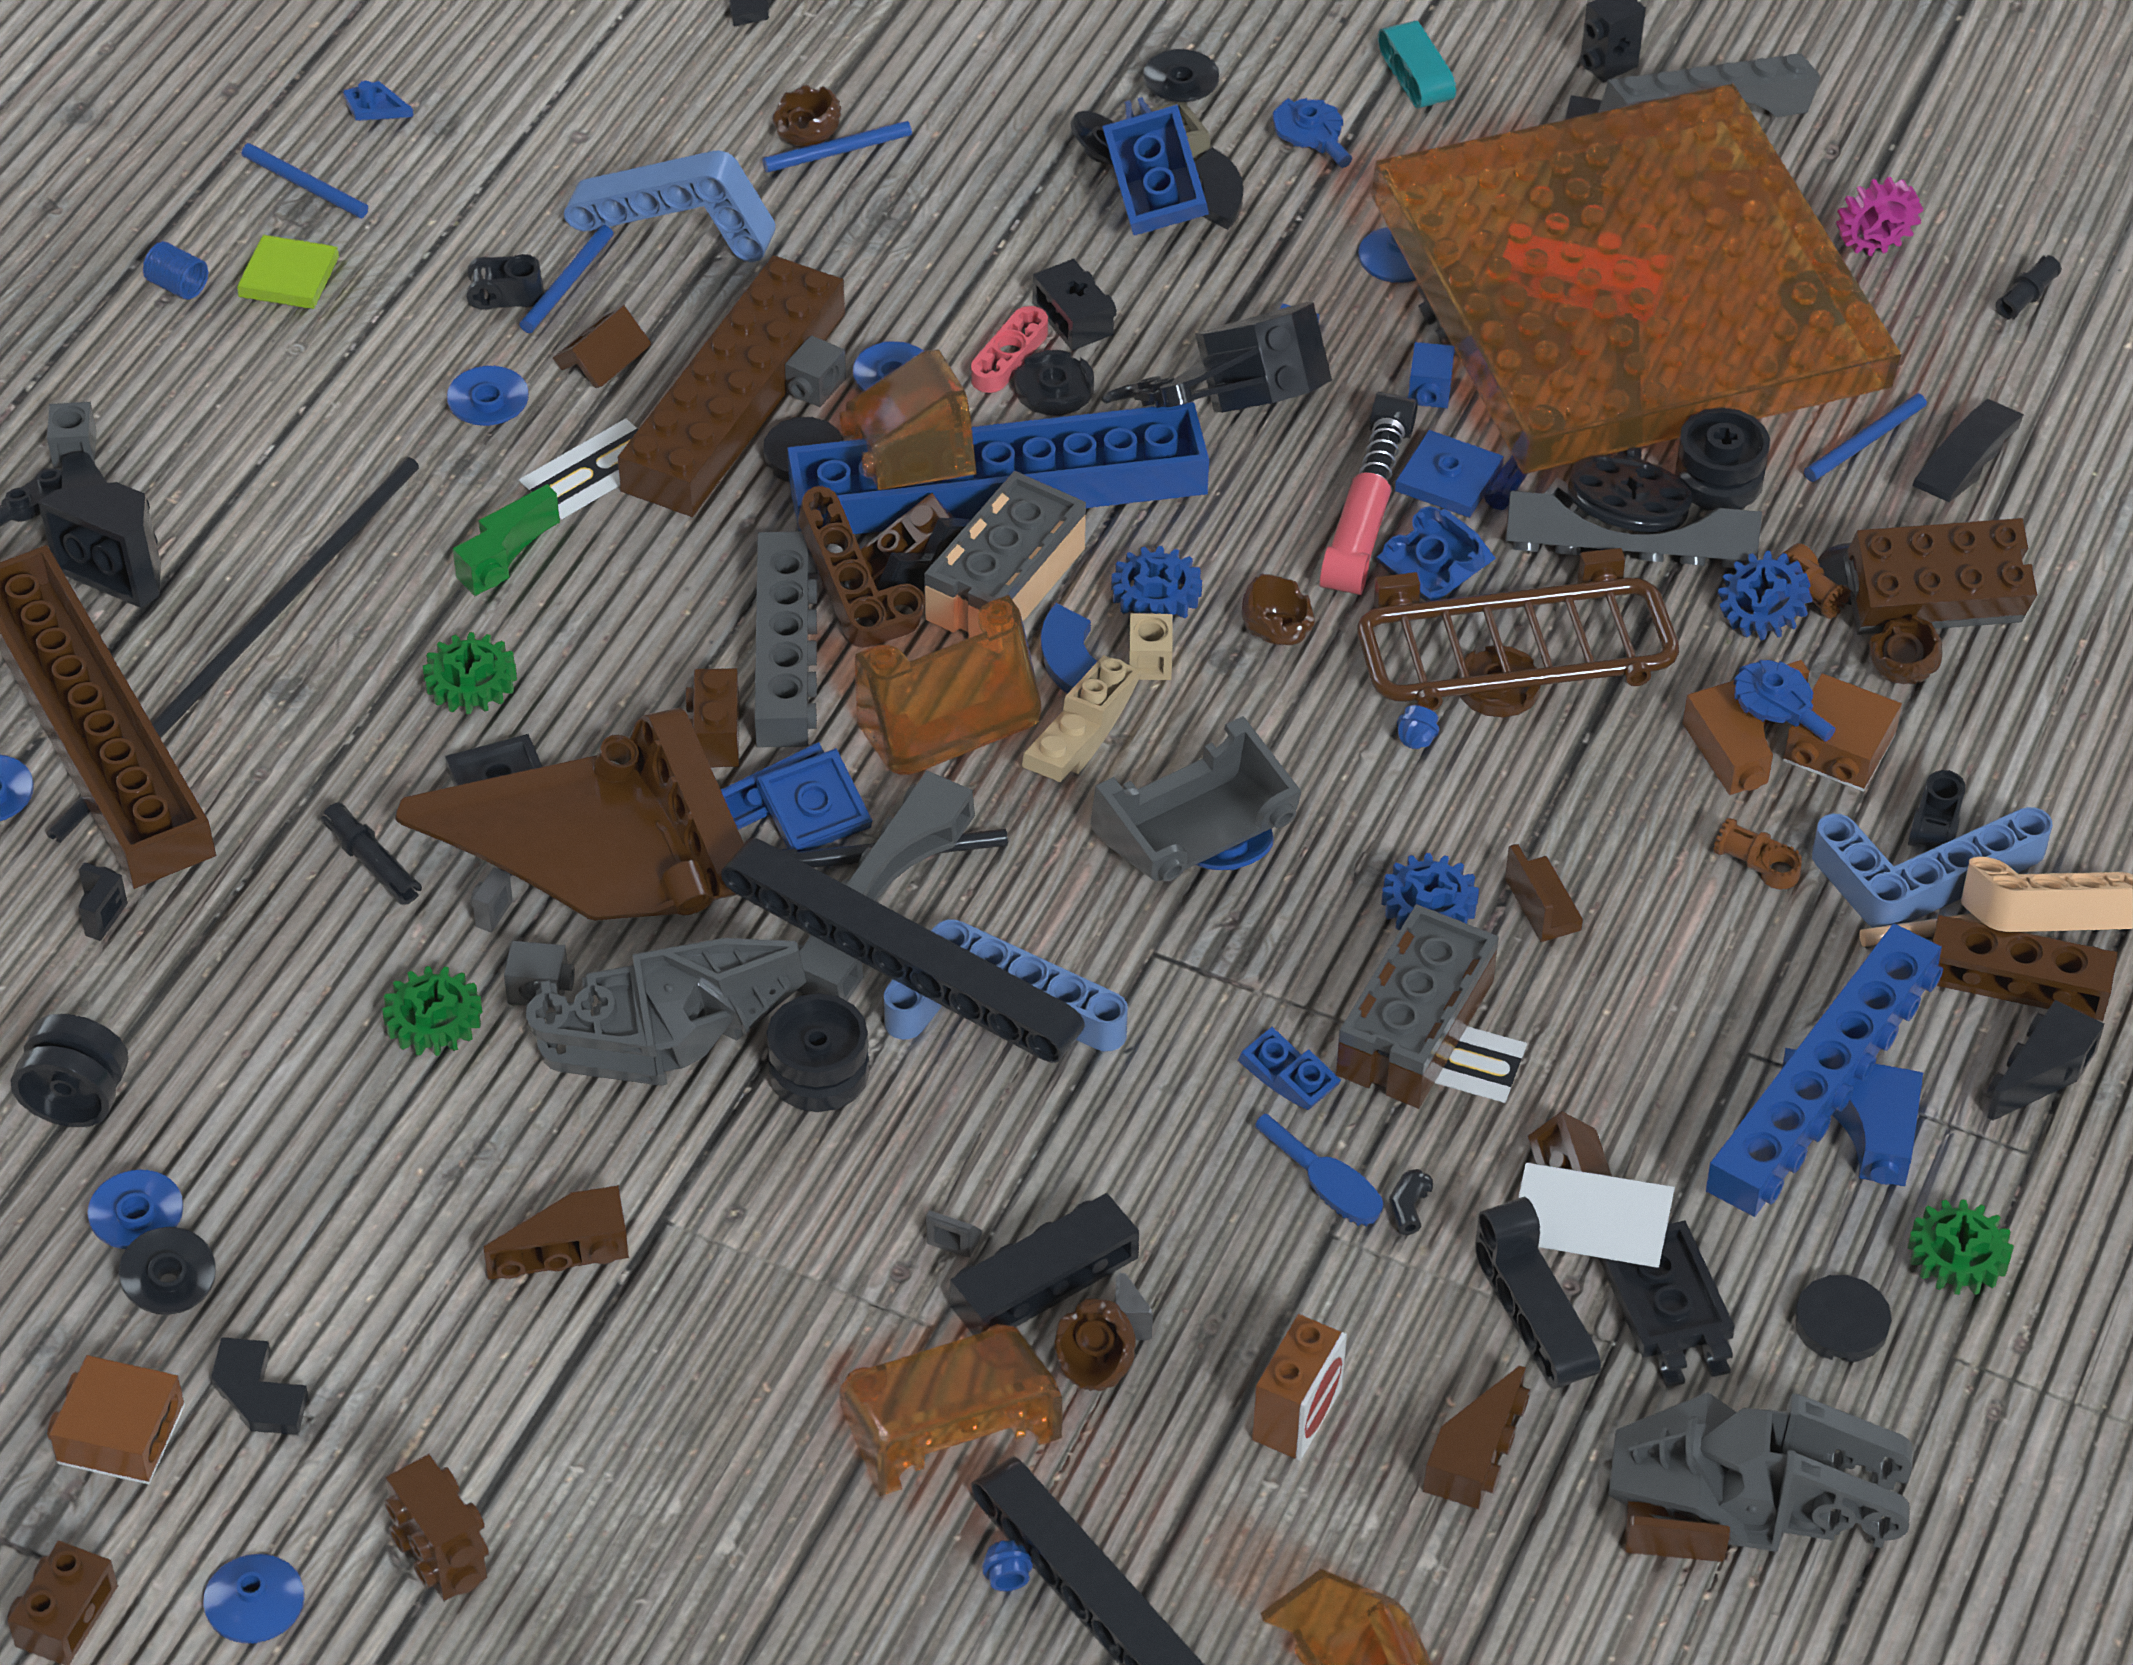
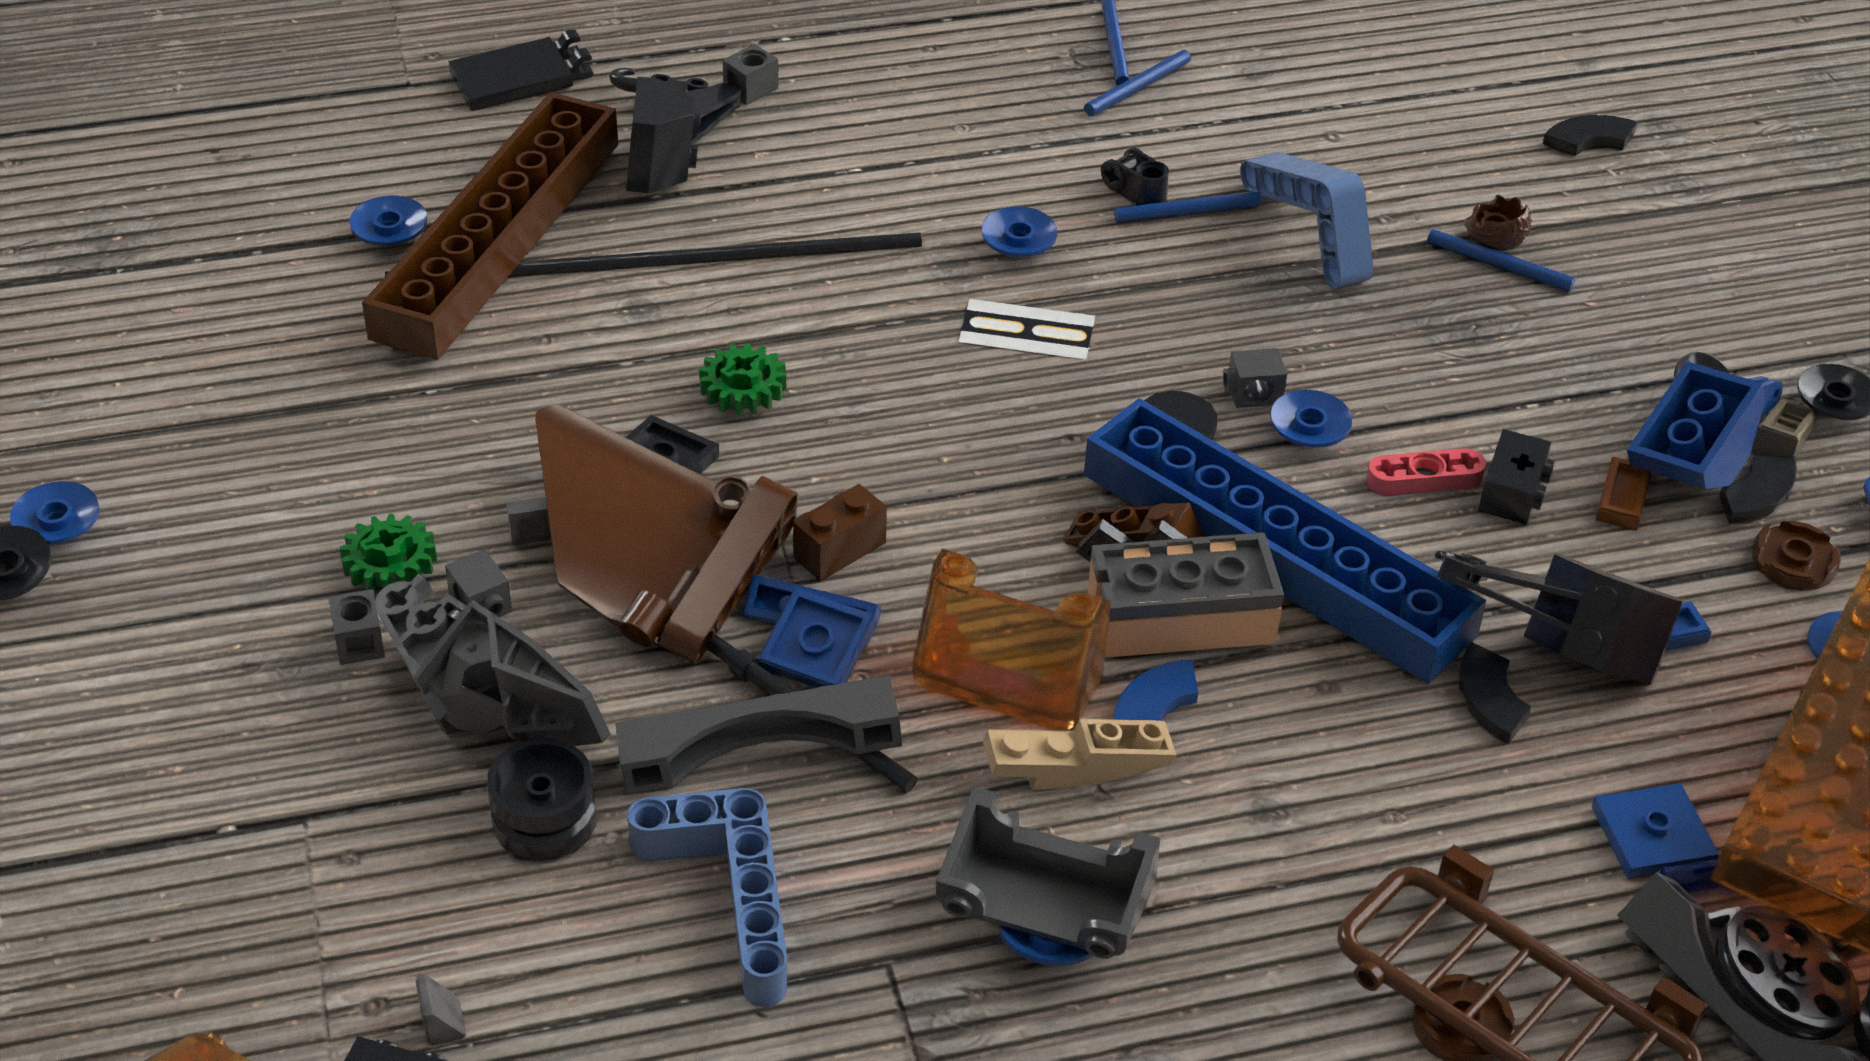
camera: 50 degrees right, 5 degrees down
(69, 1070) = (149, 396): black wheel -> none
(102, 899) = (336, 330): black bracket -> none
(175, 270) = (947, 19): blue piece -> none
(288, 271) = (1022, 82): lime tile -> none
(361, 842) = (520, 426): black pin -> none
(375, 102) = (1225, 27): blue piece -> none
(376, 203) = (1137, 83): none -> blue bar
(497, 1074) = (356, 627): none -> dark grey brick
(503, 535) = (893, 318): green slope -> none
(570, 1233) = (228, 763): reddish brown slope -> none
(605, 347) = (1142, 262): reddish brown panel -> none
(729, 387) = (1181, 341): reddish brown brick -> none
(783, 641) = (964, 521): dark grey brick -> none
(851, 566) = (1068, 505): reddish brown beam -> none
(903, 950) = (681, 786): black beam -> none
(913, 424) = (1238, 446): clear orange windscreen -> none
(1054, 382) = (1427, 519): black tile -> none
(1144, 261) = (1623, 494): none -> dark orange tile
(1151, 645) = (1211, 746): tan brick -> none
(1156, 583) = (1261, 704): blue gear -> none
(1260, 472) = (1488, 693): none -> black tile
(1277, 610) = (1344, 803): reddish brown hair -> none
(1295, 219) = (1796, 555): none -> reddish brown tile
(1348, 558) = (1465, 818): coral piece -> none
(1417, 726) = (1331, 990): blue plate -> none
(1431, 374) = (1739, 744): blue brick -> none
(1439, 550) = (1546, 877): blue slope -> none

